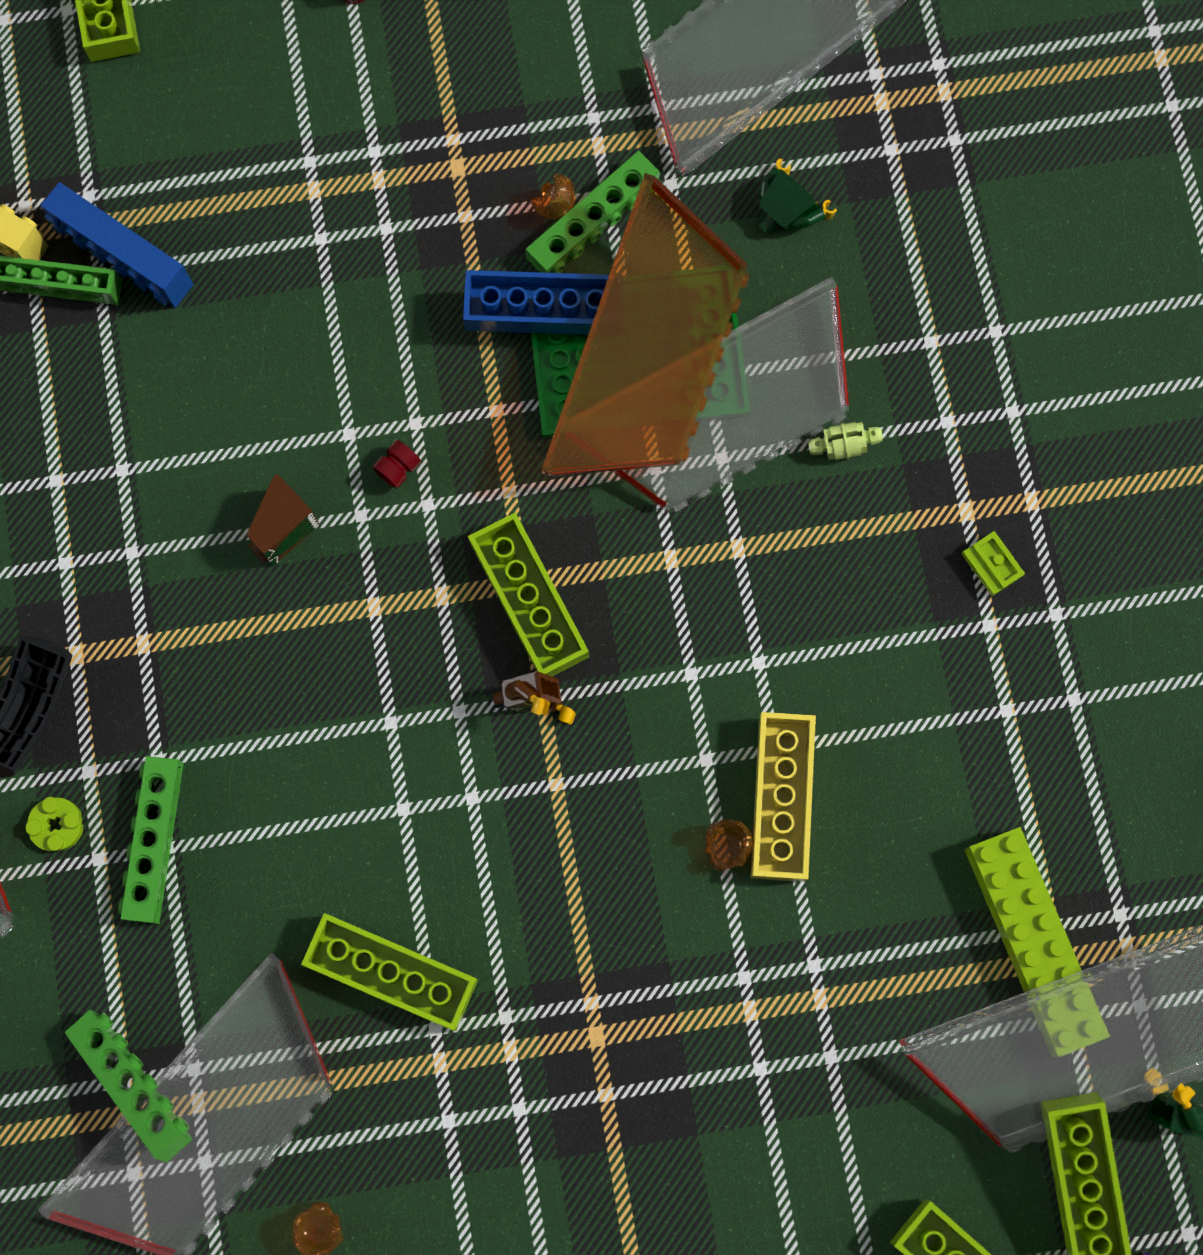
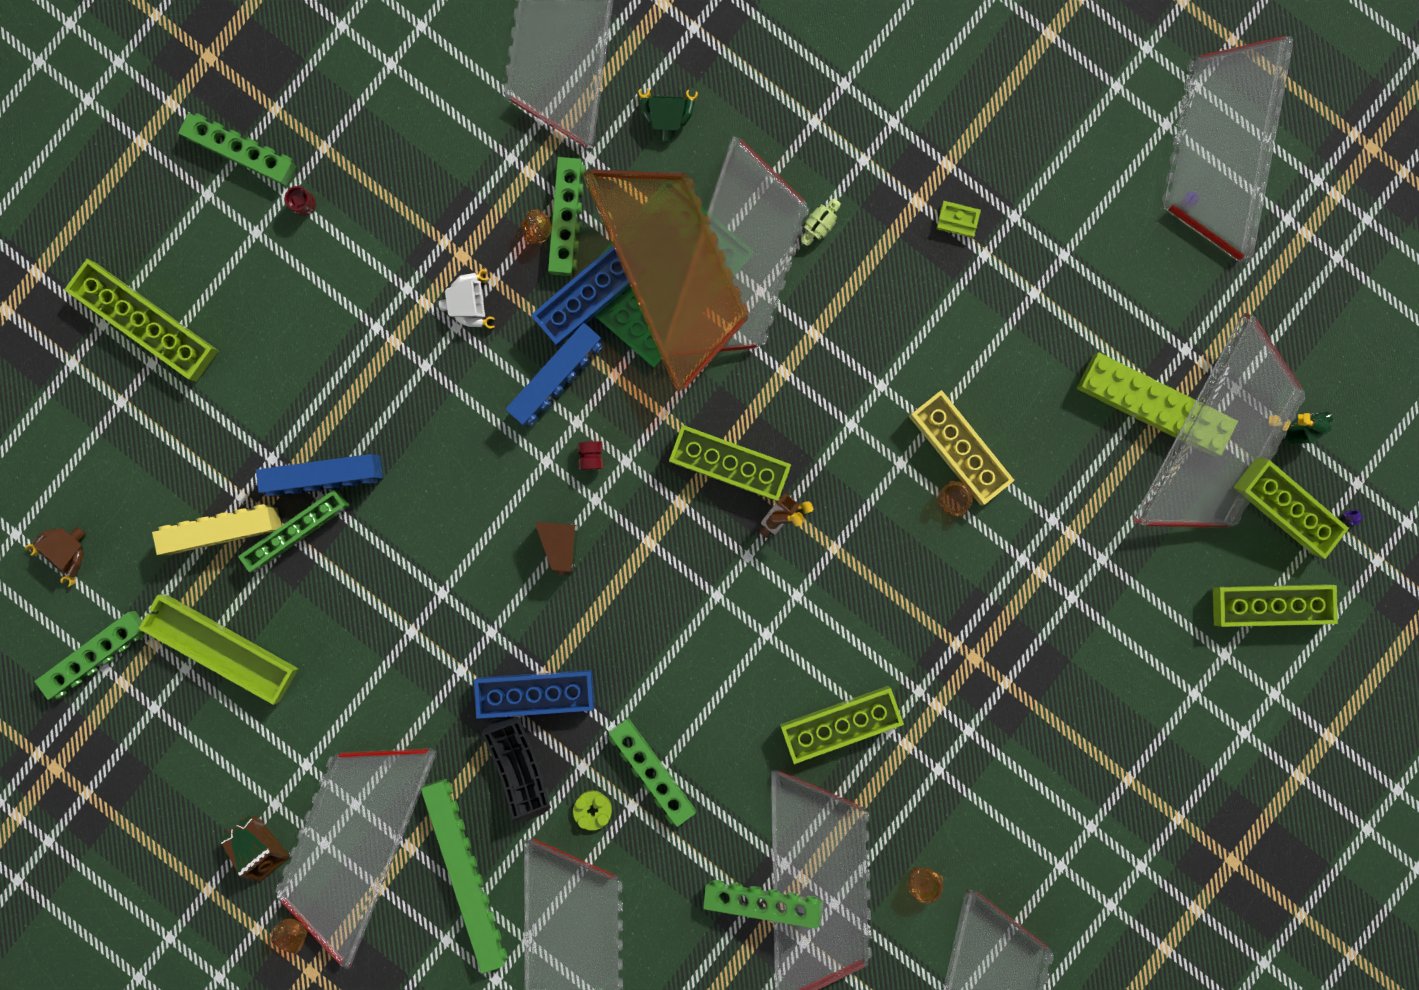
camera: 45 degrees left, 10 degrees up
(112, 649) = (534, 694): none -> blue brick
(419, 207) = (466, 301): none -> white torso
(435, 354) = (555, 375): none -> blue brick

